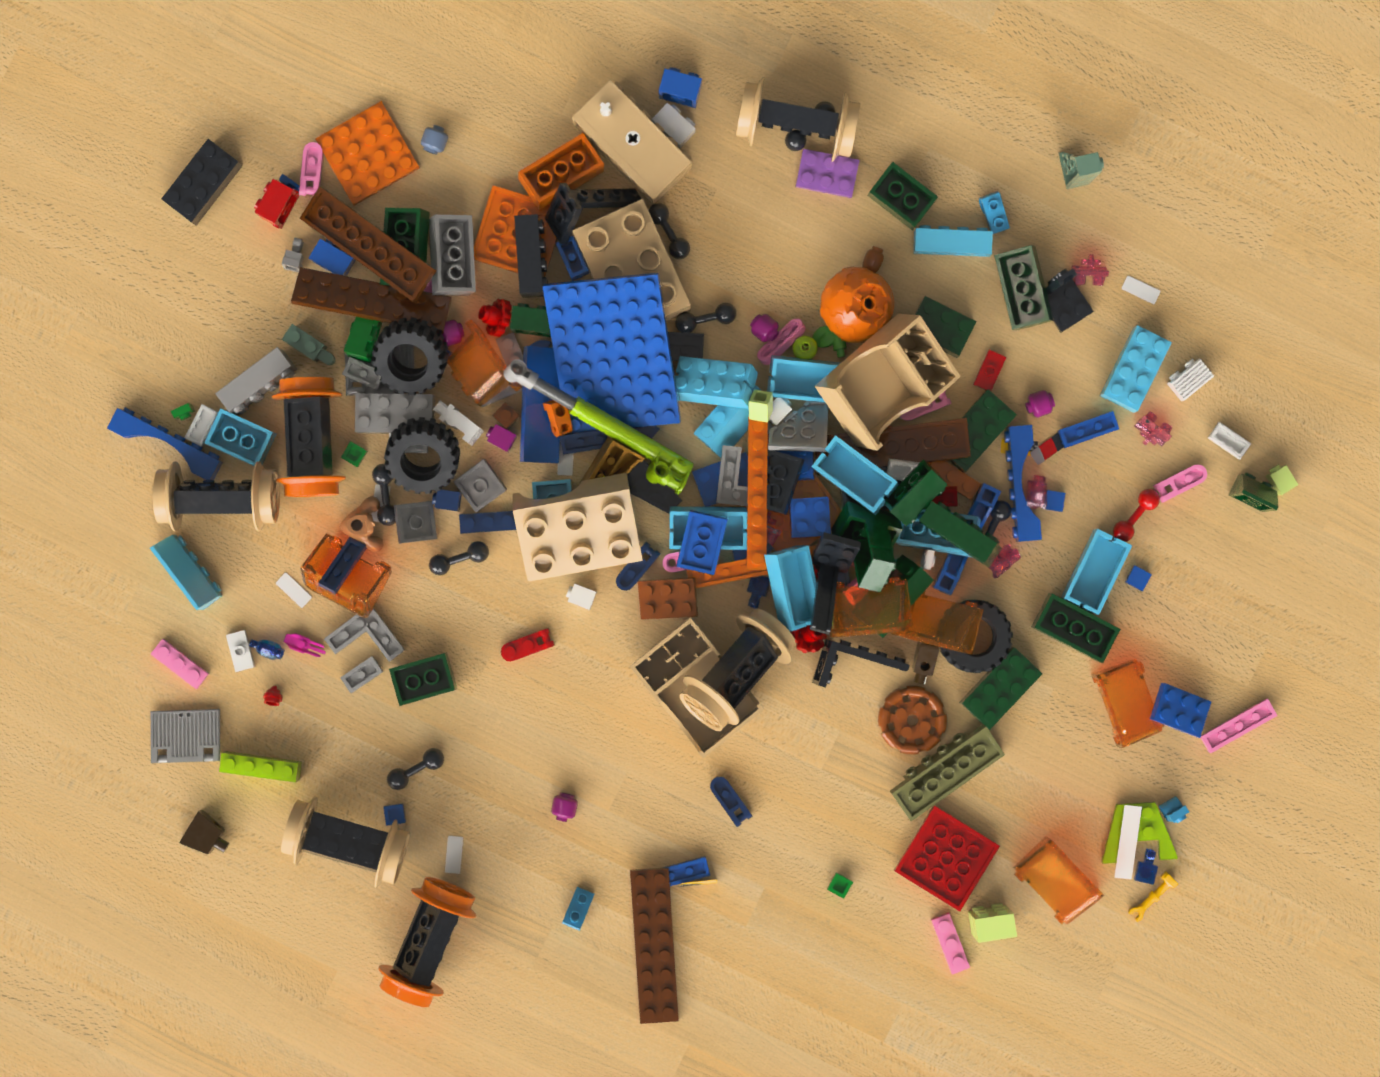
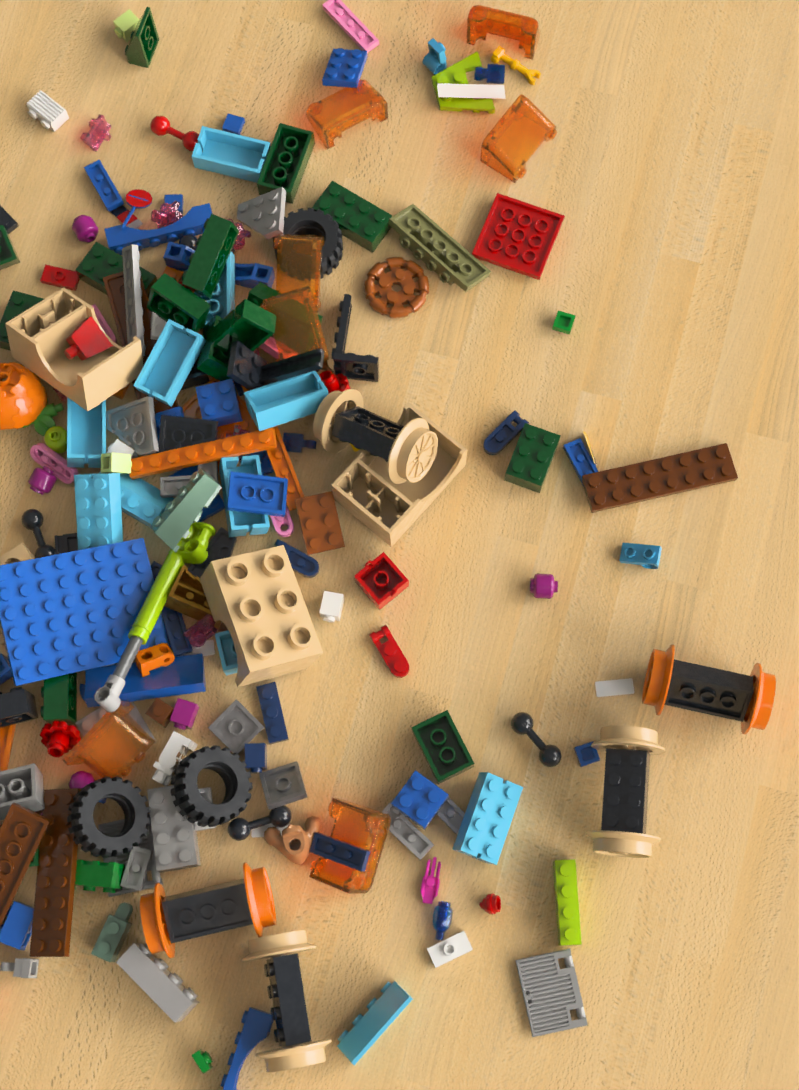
camera: 95 degrees left, 15 degrees down
(179, 663) = (475, 1014): bright pink plate -> none
(201, 425) = (214, 1037): white plate -> none
(204, 834) = (651, 950): dark brown torso -> none
(240, 437) = (221, 989): medium azure brick -> none
(293, 590) = (375, 904): white sticker -> none
(348, 708) = (487, 818): none -> medium azure piece
(354, 454) = (222, 864): green plate -> none
(375, 648) = (420, 800): none -> blue brick
(477, 552) = (322, 752): black piece -> none
(576, 466) = (201, 631): none -> clear pink hips
(596, 649) = (381, 580): none -> red brick
(697, 823) = (532, 458): none -> dark green brick
(699, 469) = (185, 508): none -> sand green wedge
(896, 393) = (86, 340): none -> red torso
(924, 653) = (337, 282): dark brown torso -> none
(927, 560) = (240, 292): white plate -> none
(934, 447) = (133, 294): none -> light grey plate
(950, 943) = (595, 221): bright pink plate -> none
(992, 923) = (568, 181): yellowish green brick -> none
(1016, 596) = (264, 213): none -> light grey plate
(1065, 463) = (136, 199): none -> red piece
(1135, 369) = (43, 155): medium azure brick -> none
(1181, 482) = (140, 103): bright pink plate -> none
(1192, 917) = (504, 24): none -> clear orange windscreen
(1229, 440) = (98, 72): white plate -> none

